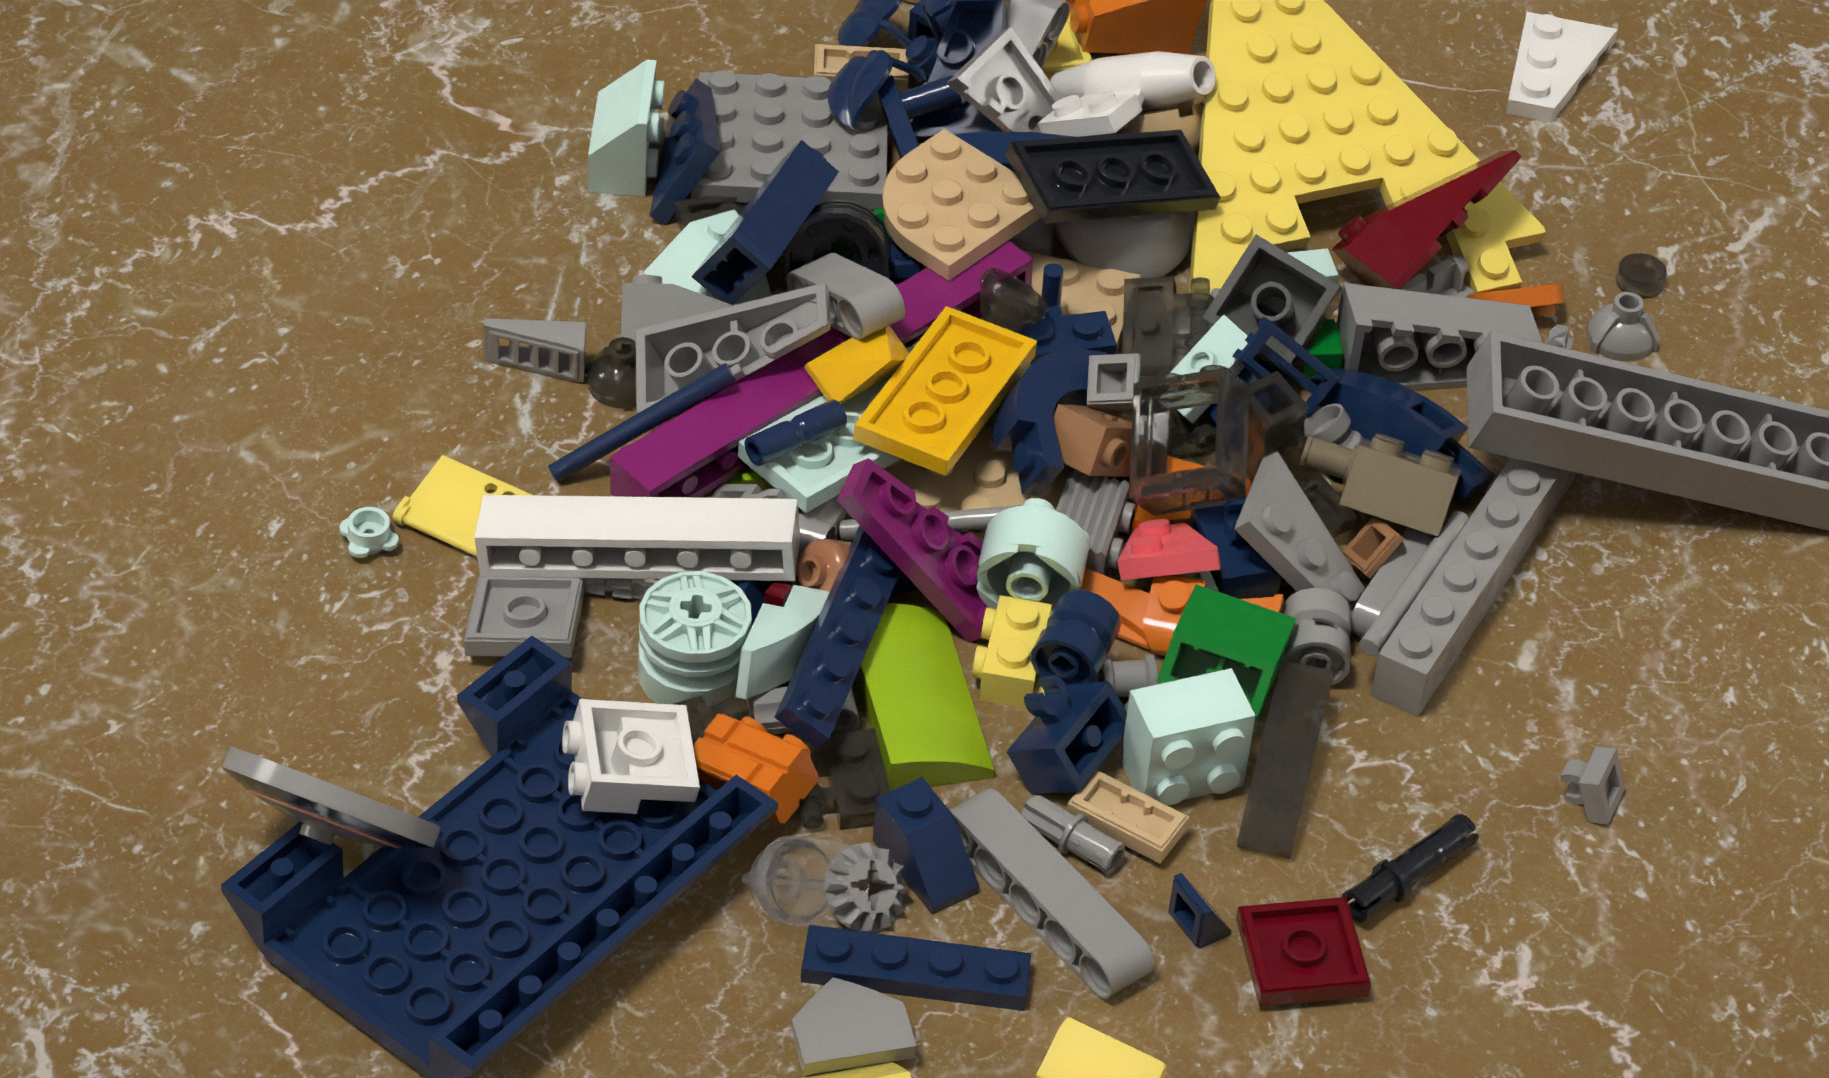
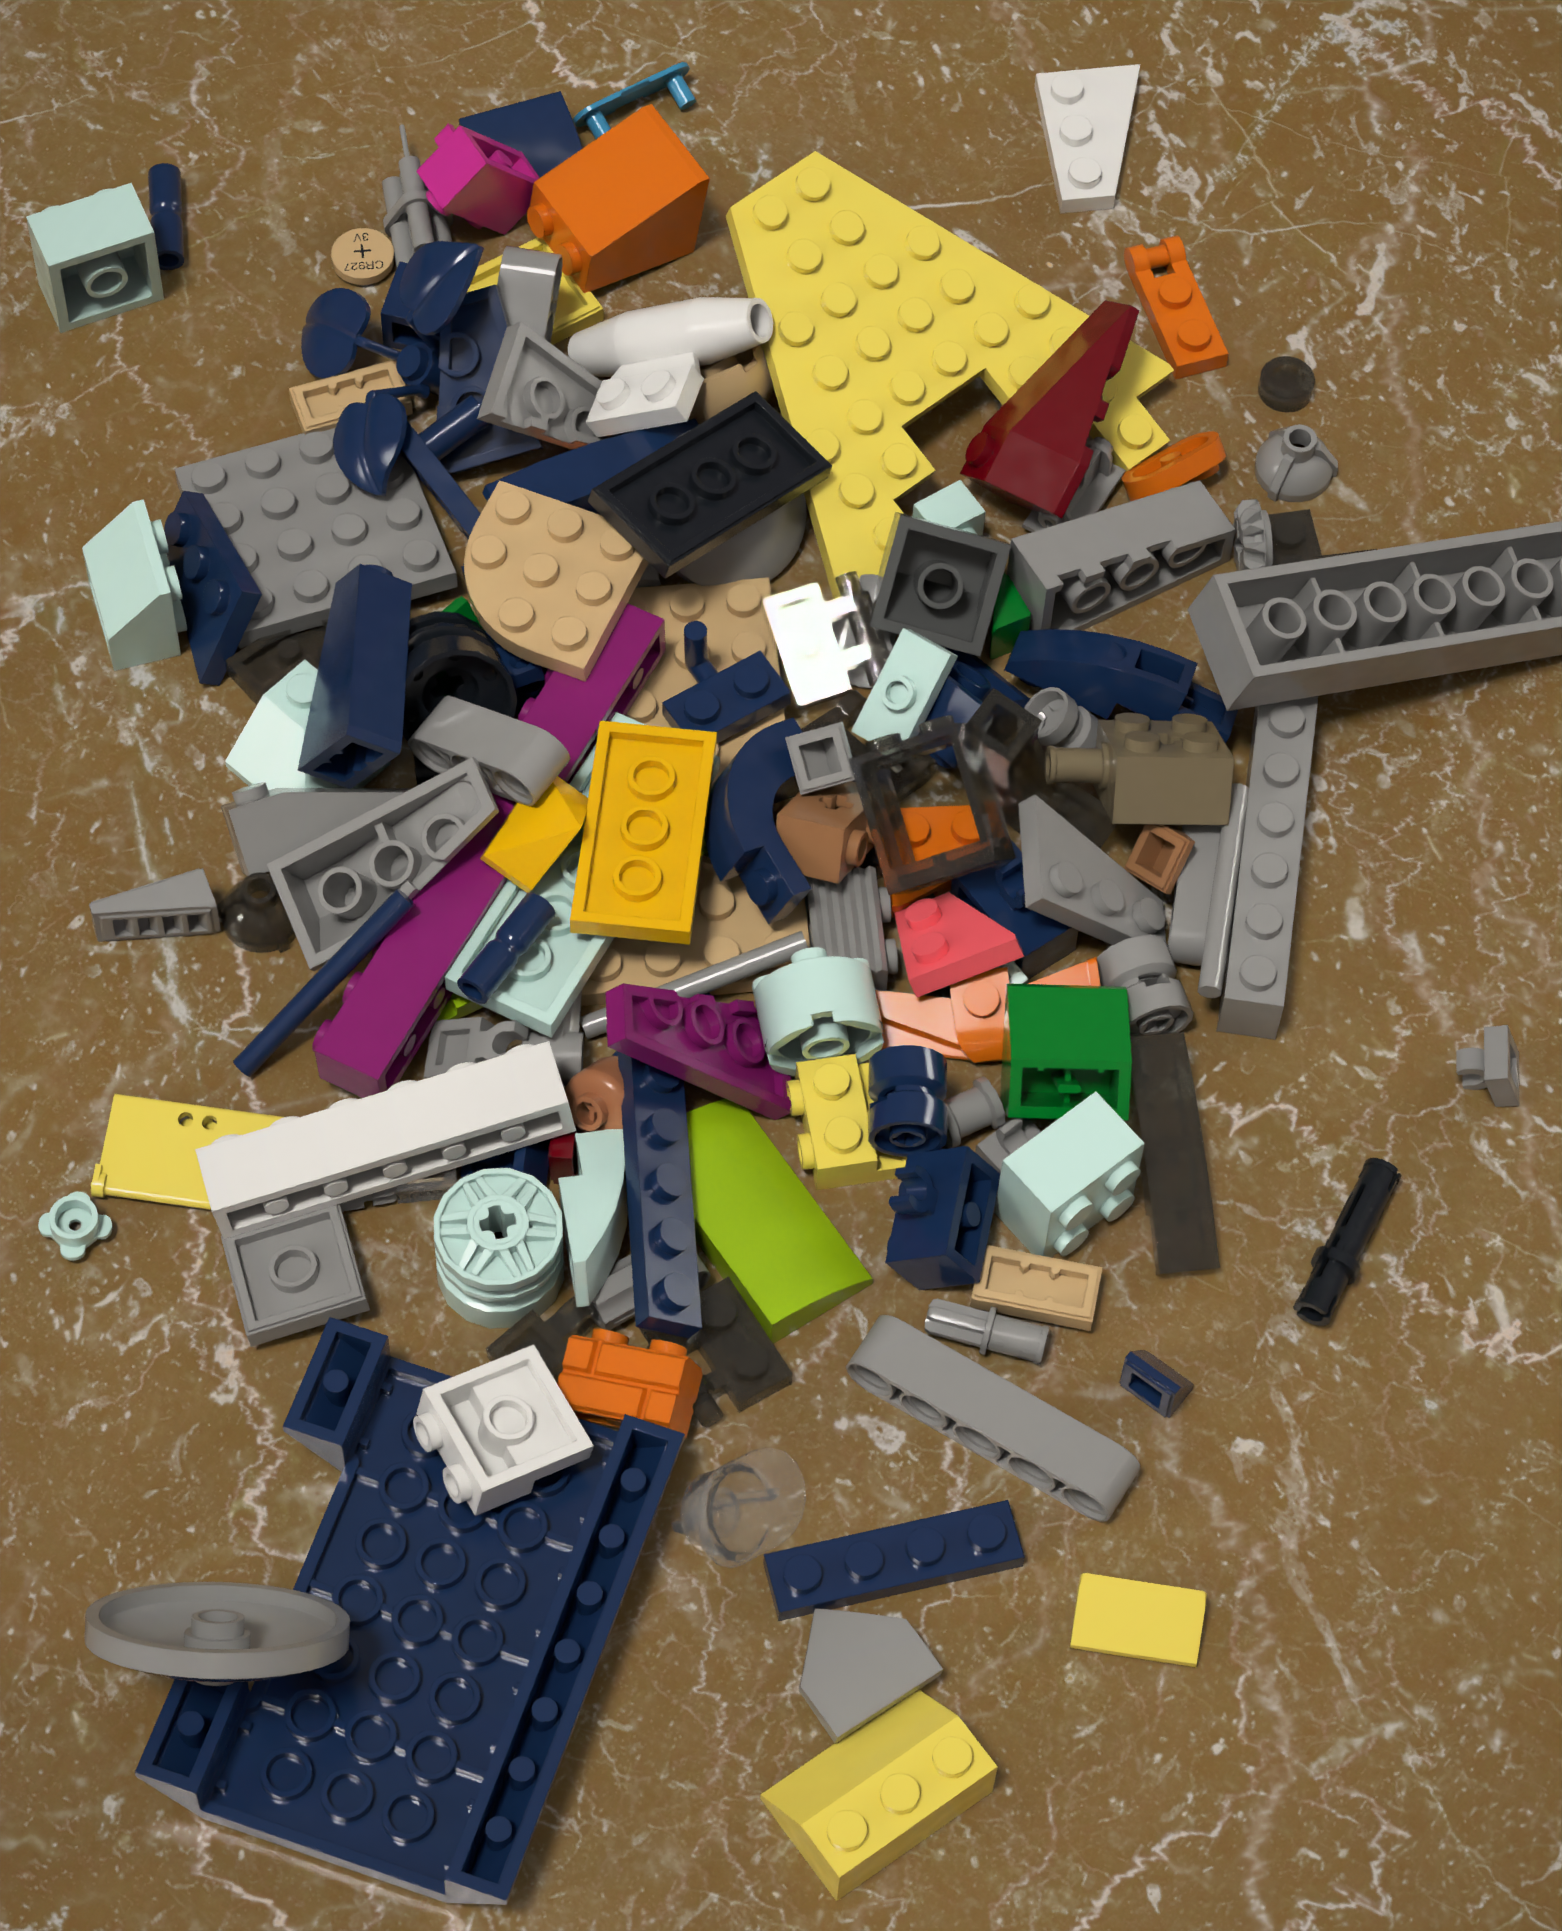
camera: 20 degrees left, 15 degrees up
(849, 903) = (789, 1472): light grey gear -> none
(927, 844) = (845, 1410): dark blue slope -> none
(1009, 301) = (663, 687): clear smoke piece -> none
(1257, 343) = (960, 657): dark blue tile -> none
(1303, 951) = (1281, 1388): dark red plate -> none
(1571, 198) = (1176, 308): none -> orange plate

